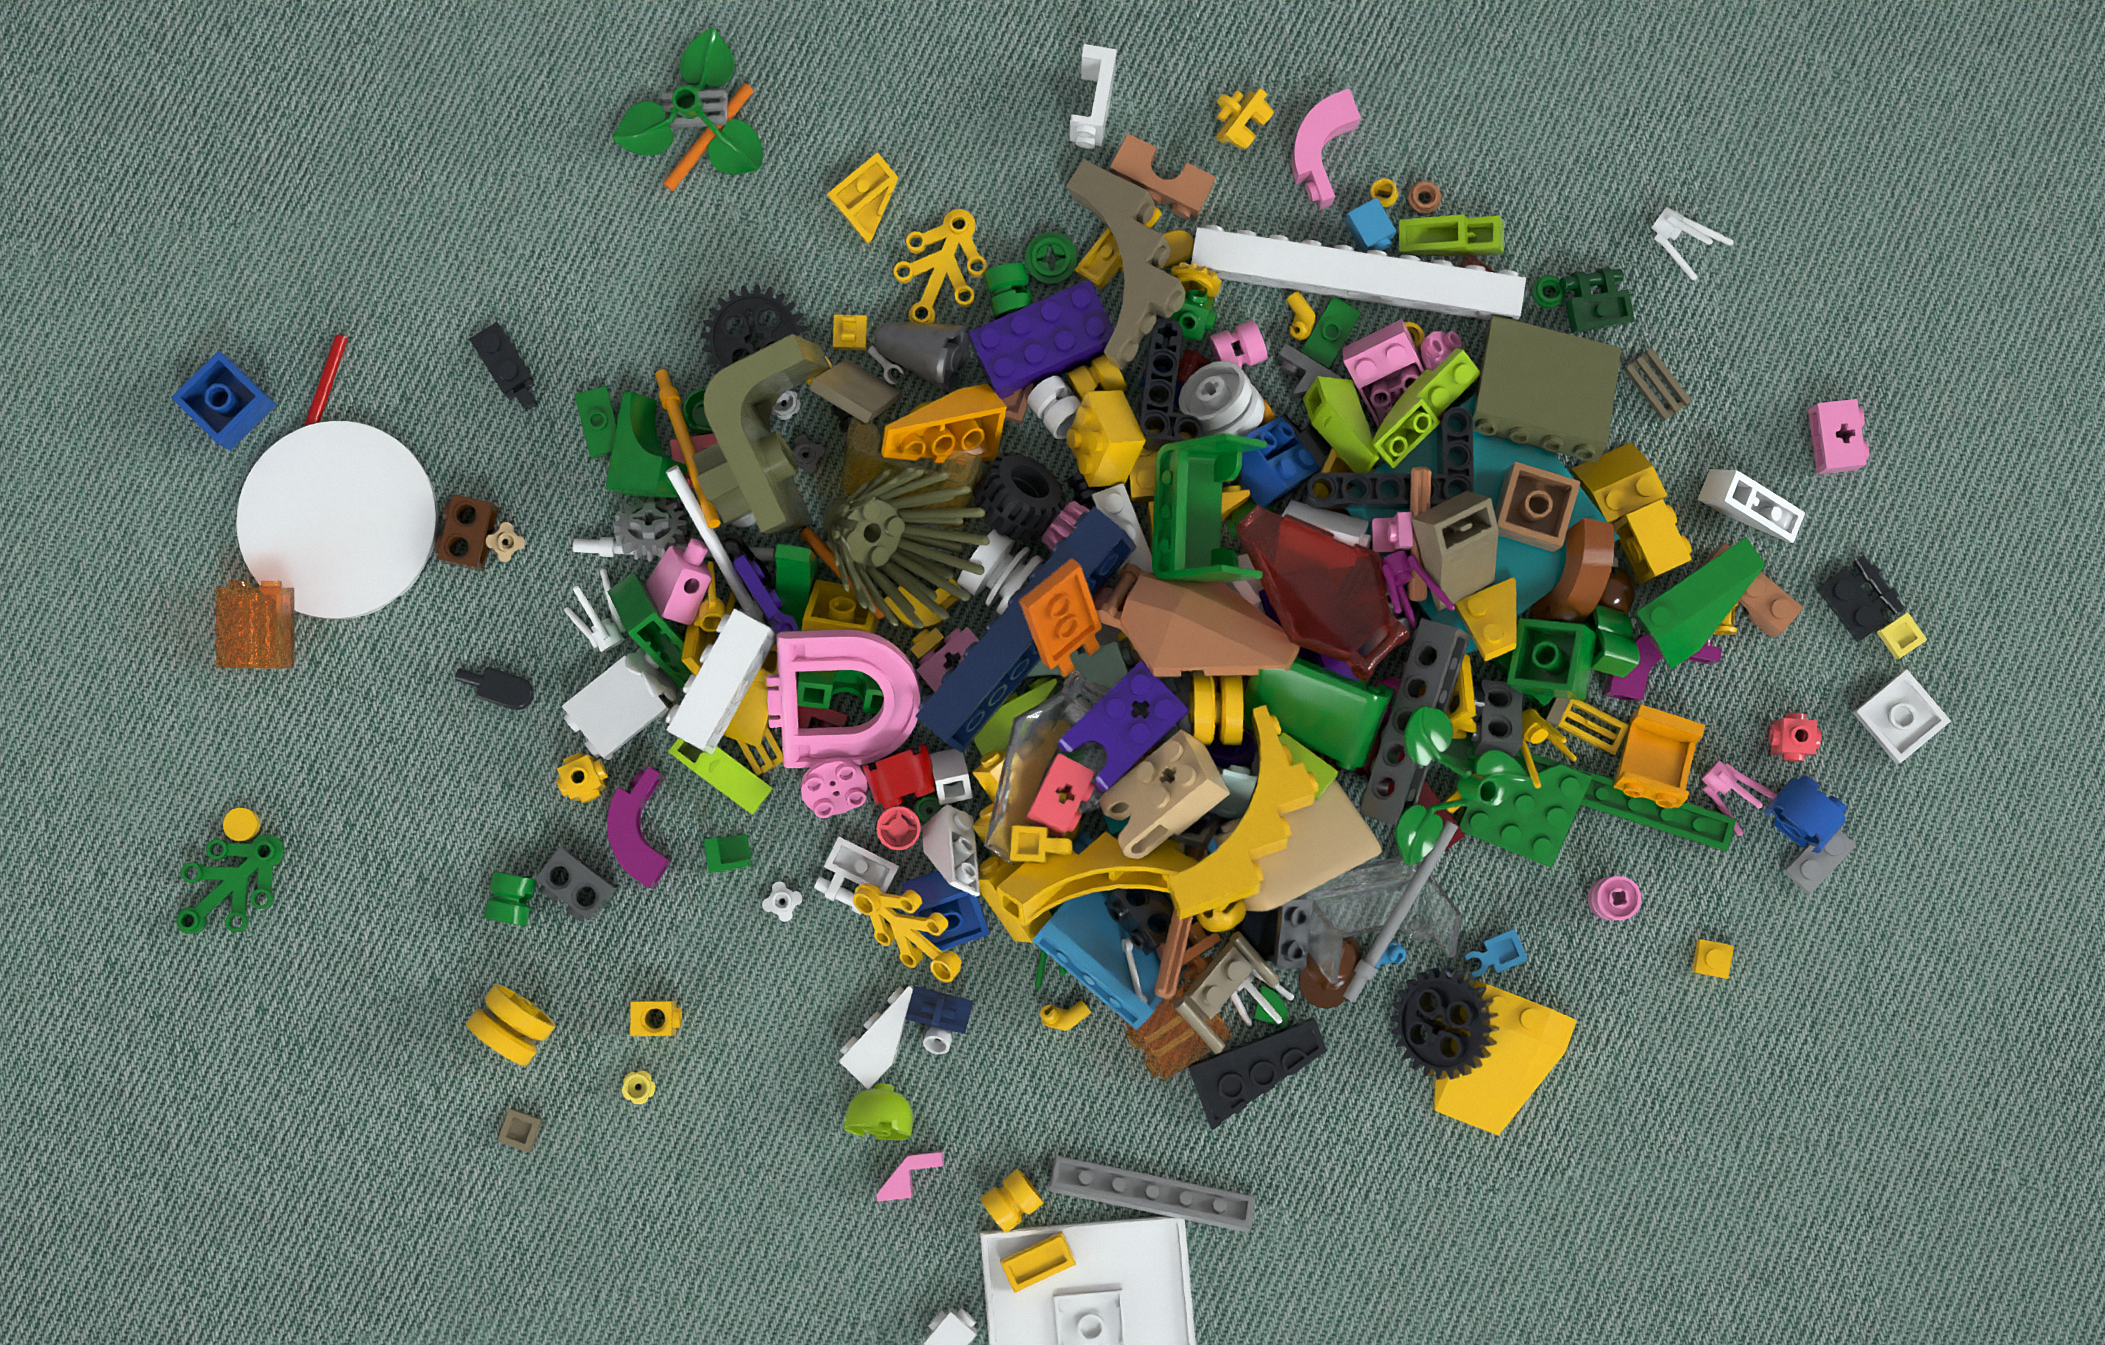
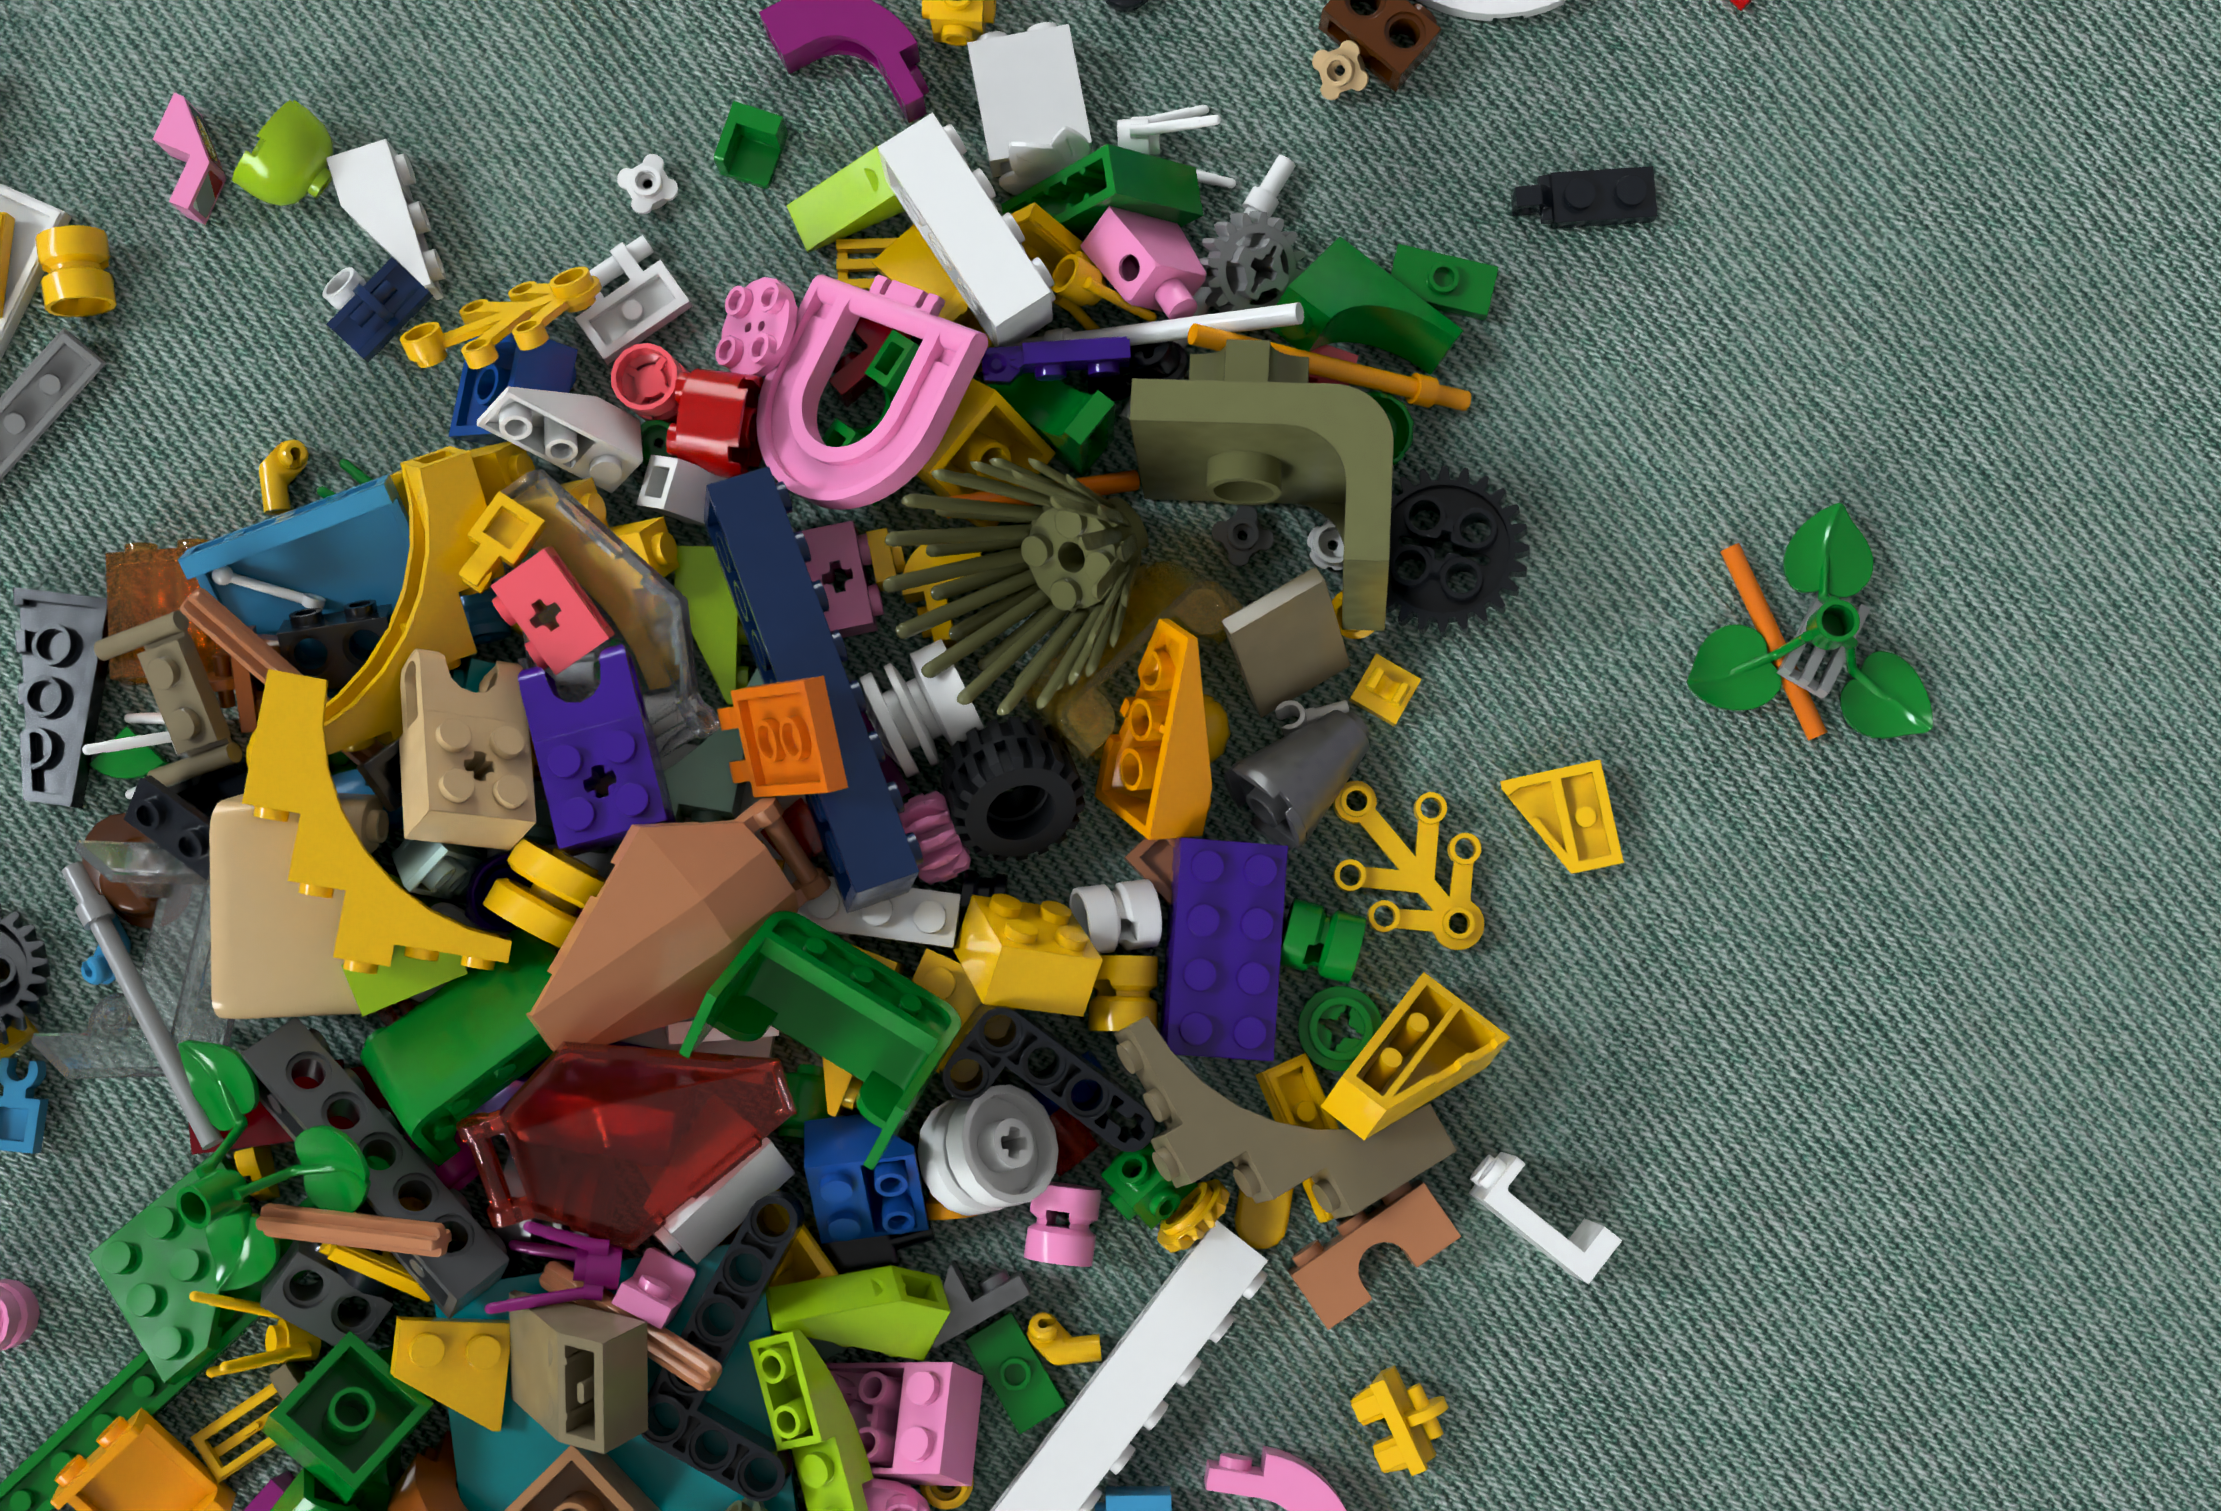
camera: 115 degrees right, 0 degrees up
(1044, 208) = (1413, 1058): none -> yellow wedge
(1452, 705) = (354, 1230): none -> nougat axle

